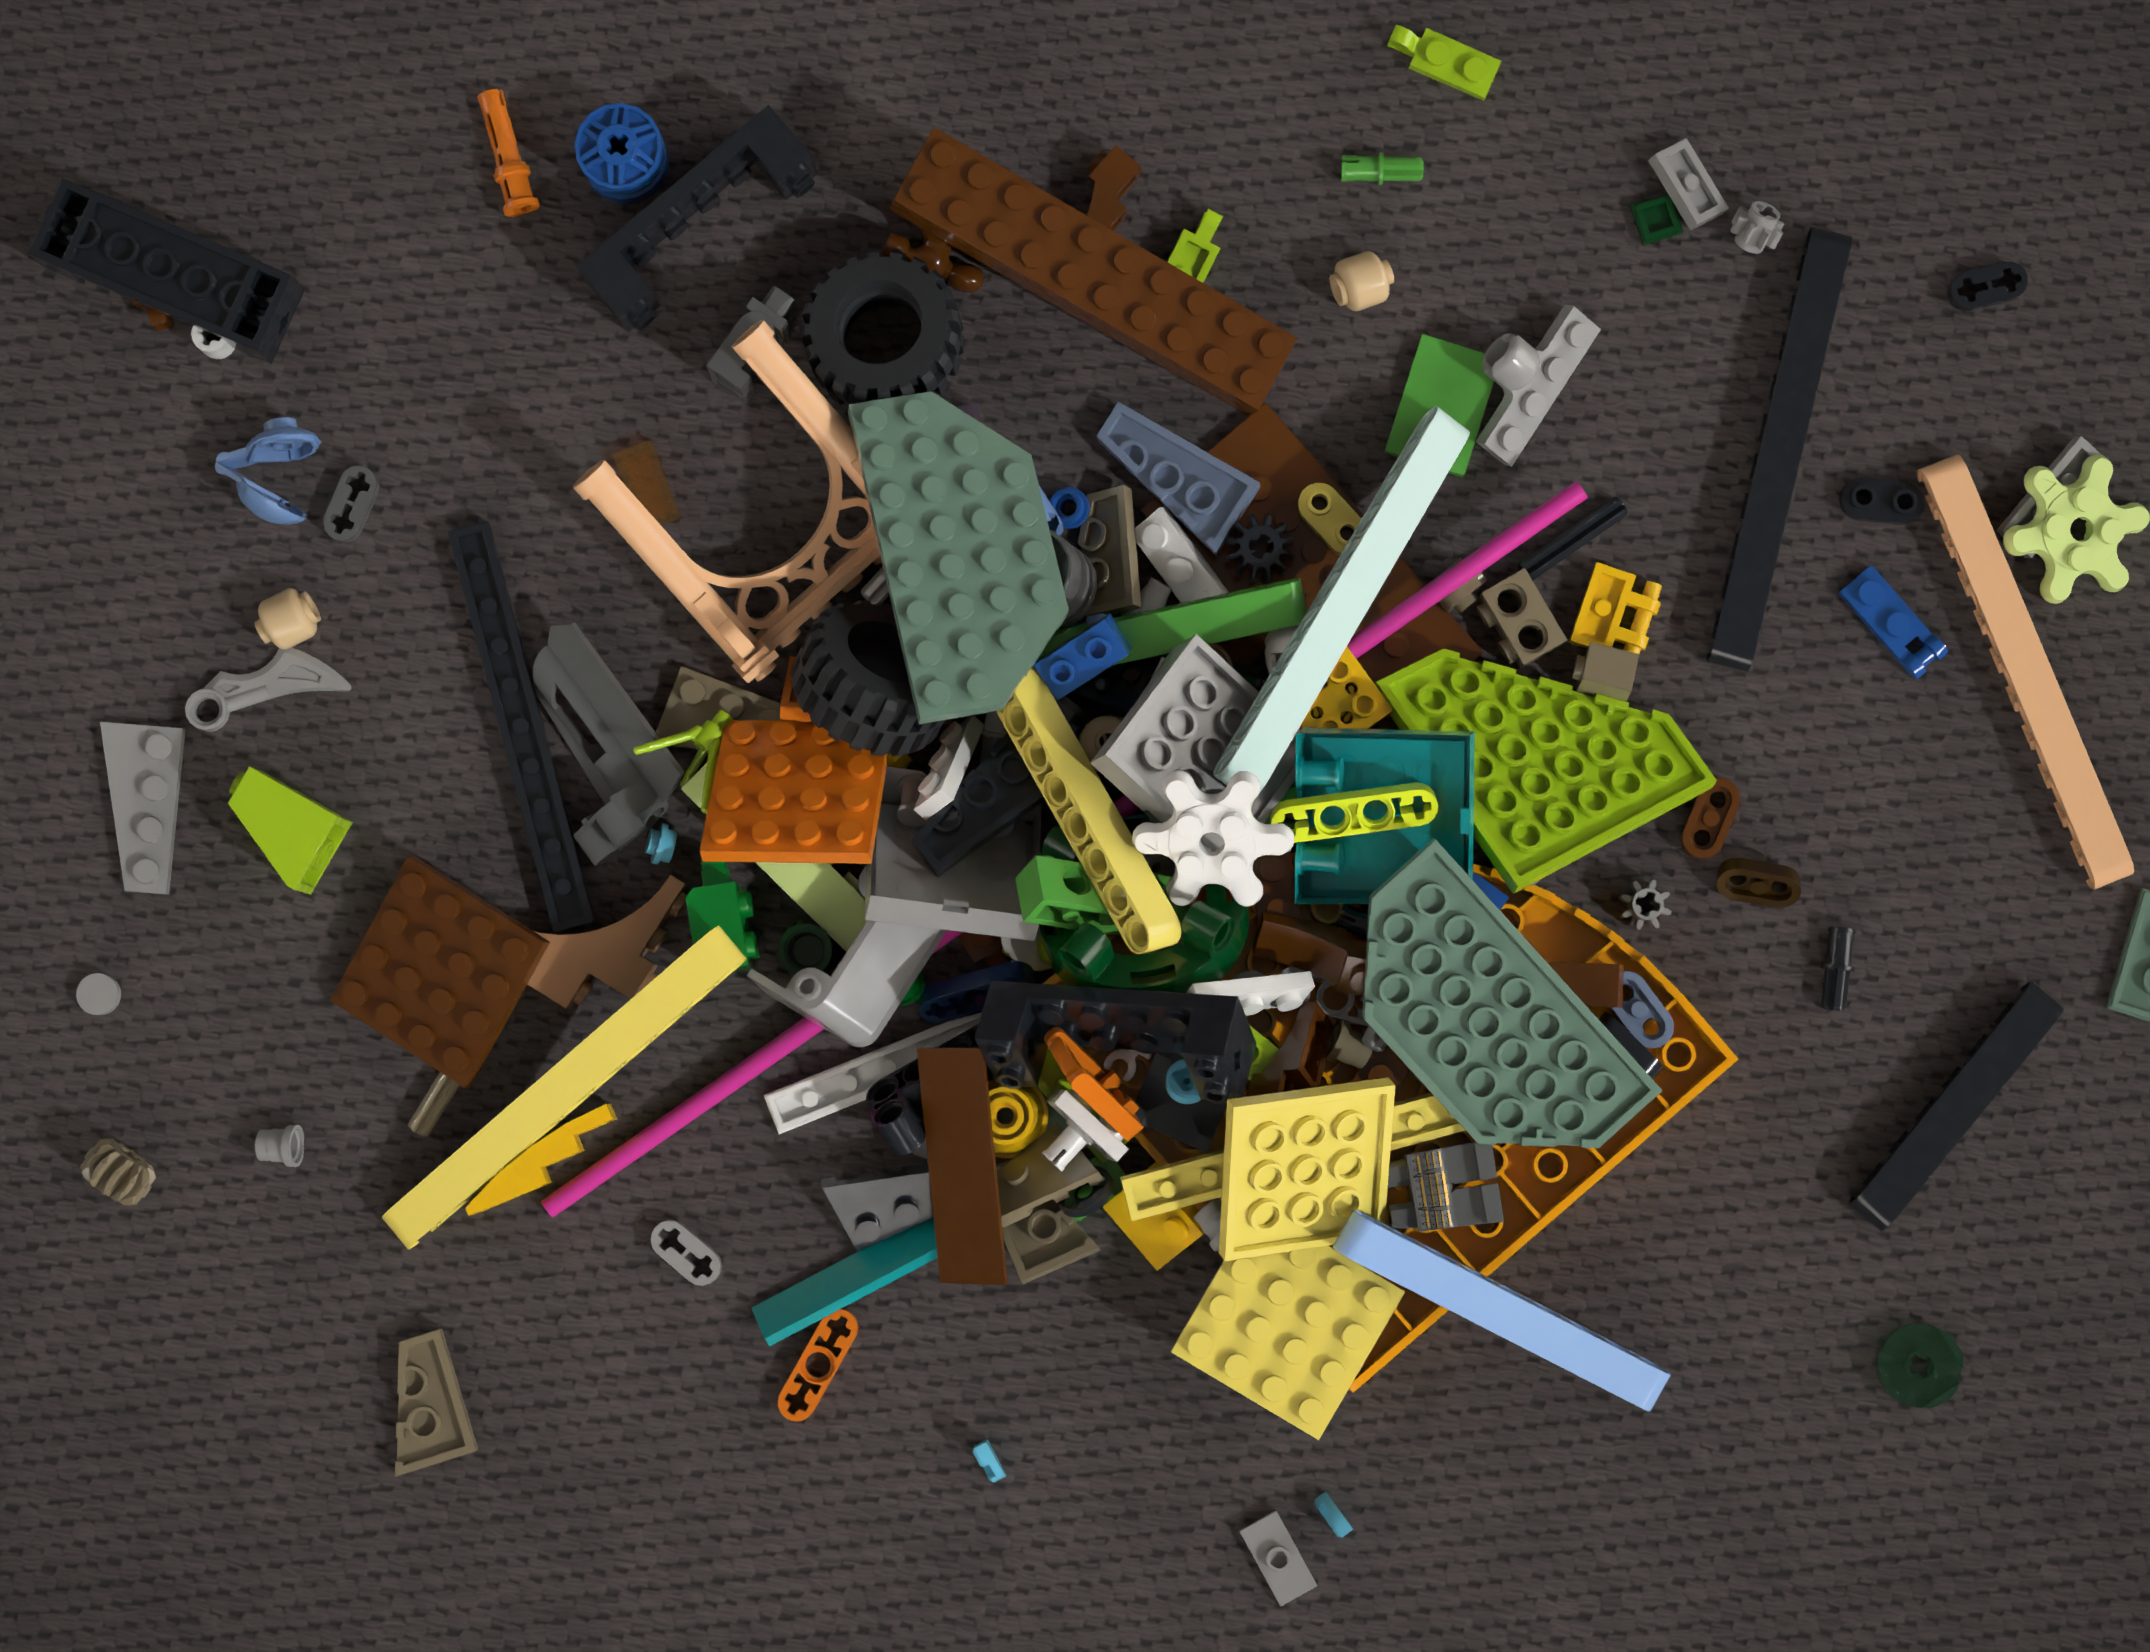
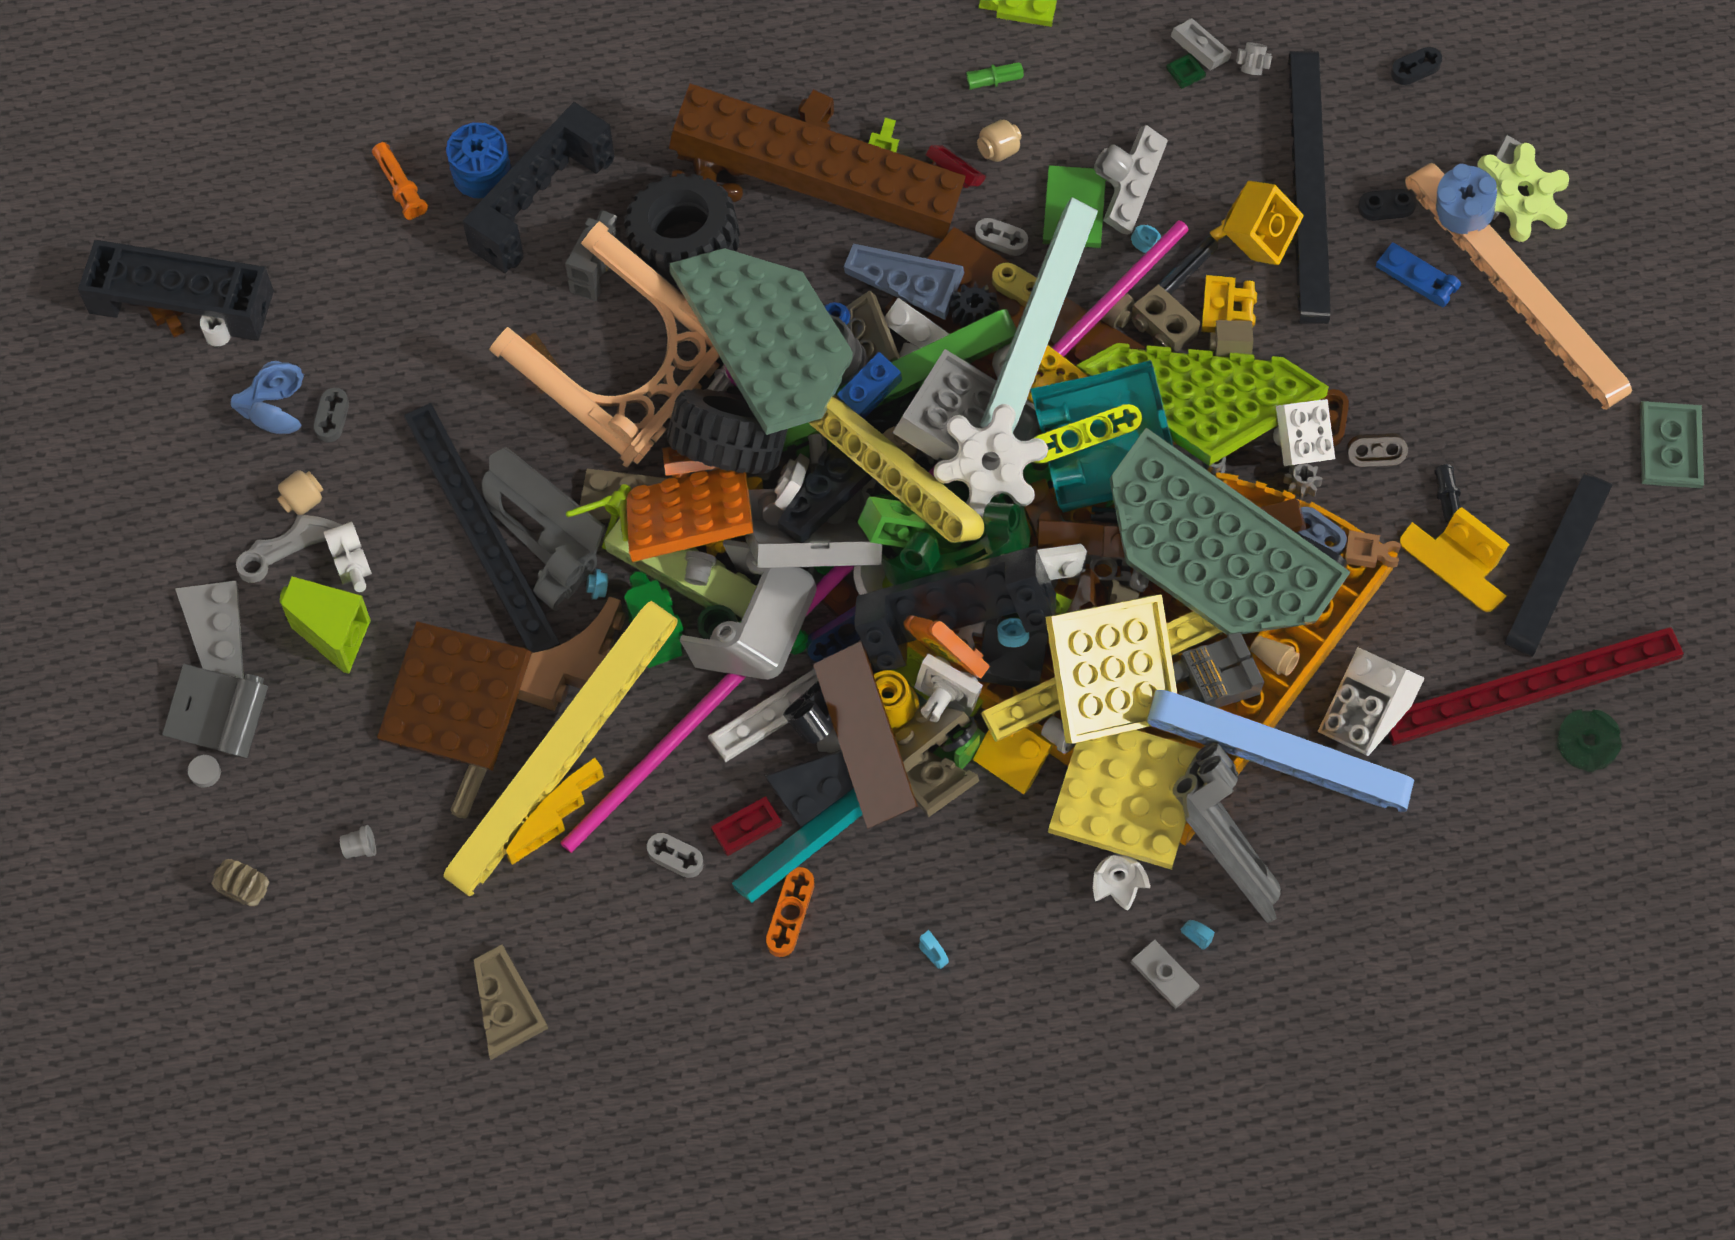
camera: 15 degrees left, 20 degrees down
(131, 919) = (216, 710): none -> dark grey door
(337, 740) = (348, 555): none -> white beam
(786, 1235) = (746, 826): none -> dark red plate
(795, 875) = (698, 567): none -> light grey piece
(1251, 1422) = (1120, 886): none -> white piece
(1290, 306) = (948, 160): none -> dark red plate
(1335, 424) = (1001, 236): none -> light grey beam
(1382, 1384) = (1200, 792): none -> dark grey panel
(1529, 482) = (1145, 237): none -> medium azure tile
(1531, 1175) = (1276, 655): none -> tan cone
(1643, 1253) = (1369, 701): none -> white slope
(1657, 844) = (1300, 435): none -> white plate
(1689, 506) = (1261, 222): none -> yellow piece
(1695, 1050) = (1365, 550): none -> medium nougat plate
(1826, 1065) = (1461, 556): none -> yellow plate
(1868, 1273) = (1536, 685): none -> dark red plate
(2014, 541) = (1466, 199): none -> medium blue brick

